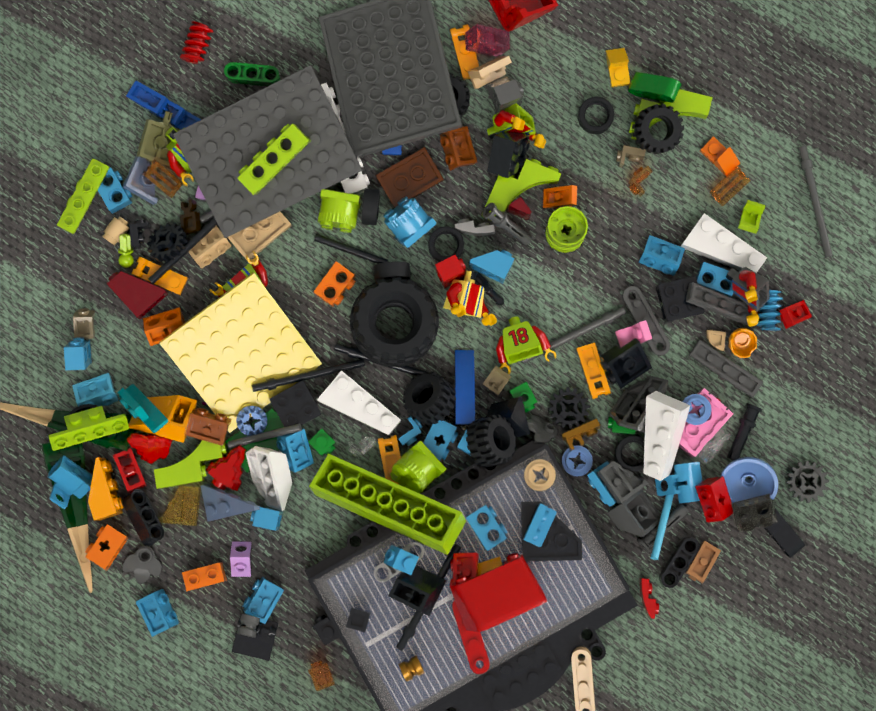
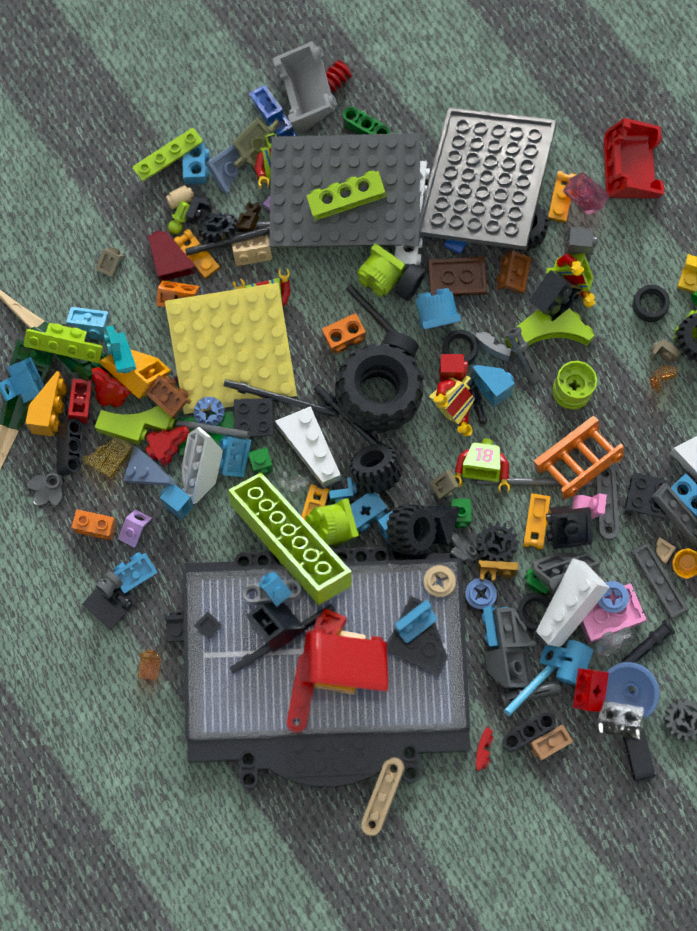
camera: 30 degrees right, 10 degrees down
(77, 354) = (90, 280): dark azure brick -> none
(116, 543) = (17, 464): orange brick -> none
(151, 169) = (237, 160): clear orange tile -> none
(157, 612) = (36, 536): dark azure bracket -> none
(177, 65) = (306, 85): none -> light grey windscreen
(259, 235) = (302, 260): tan wing -> none
(411, 668) = (232, 693): pearl gold wheel -> none
(464, 387) = (412, 476): blue slope -> none
(482, 529) = (362, 602): dark azure brick -> none
(489, 71) = (568, 219): tan bracket -> none
(520, 209) = (541, 347): dark red slope -> none
(560, 196) = (584, 354): orange slope -> none
(591, 280) = (567, 444): none -> orange fence
(662, 255) = (650, 452): dark azure bracket -> none

